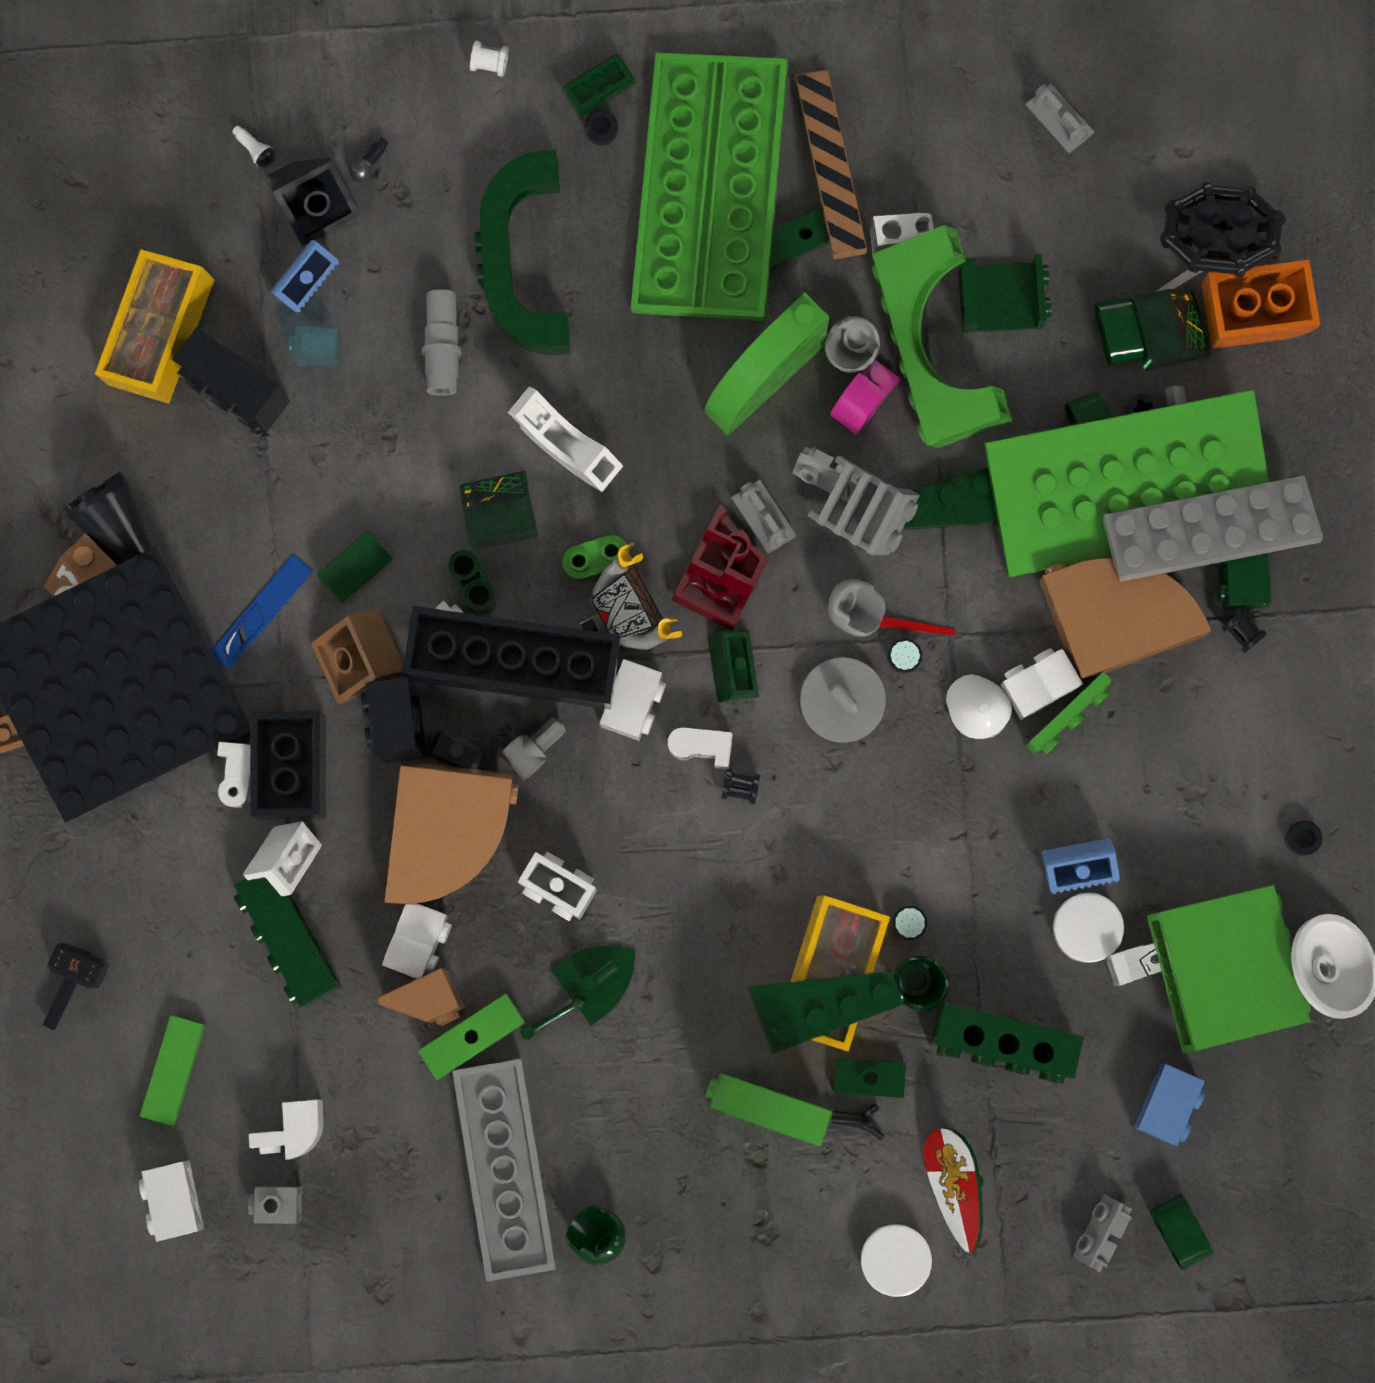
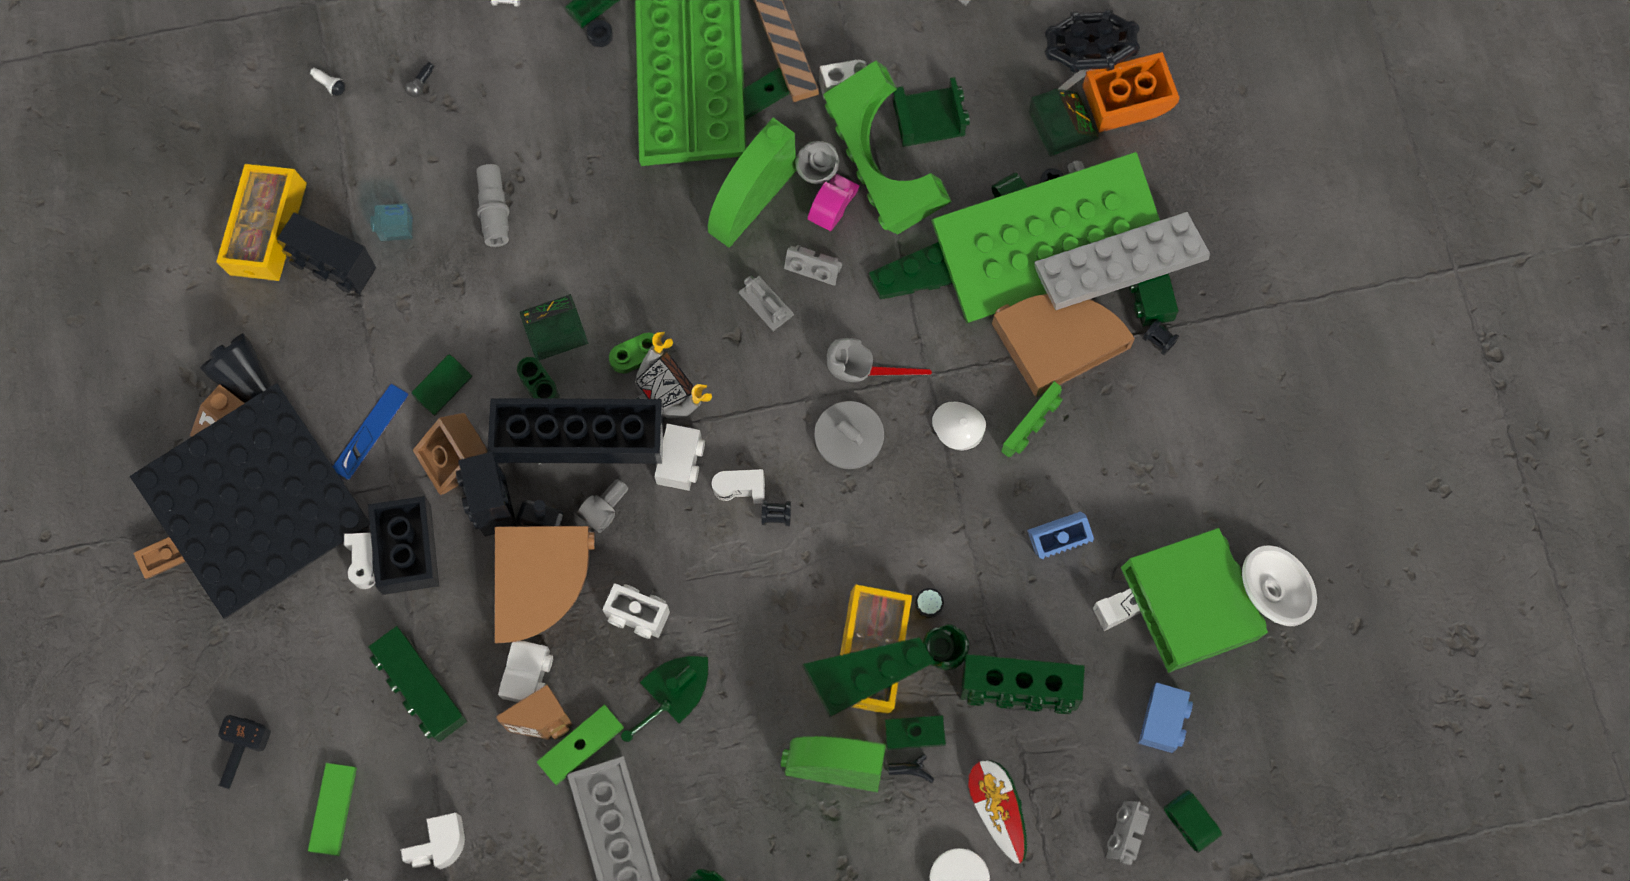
camera: 10 degrees left, 10 degrees down
(284, 857) = (408, 618): white panel -> none
(304, 276) = (377, 169): medium blue brick -> none
(312, 197) = (378, 111): black slope -> none
(514, 182) = (535, 81): dark green arch -> none
(563, 441) = (598, 267): white arch -> none
(721, 572) = (737, 350): dark red slope -> none
(733, 665) = (757, 421): dark green slope -> none
(883, 518) = (860, 288): light grey plate -> none
(904, 656) = (894, 394): light aqua tile -> none
(1041, 683) = (1006, 399): white brick -> none
(1088, 927) = (1075, 585): white tile -> none
(1119, 330) = (1024, 127): dark green beam -> none
(1303, 838) = (1236, 492): black tile -> none

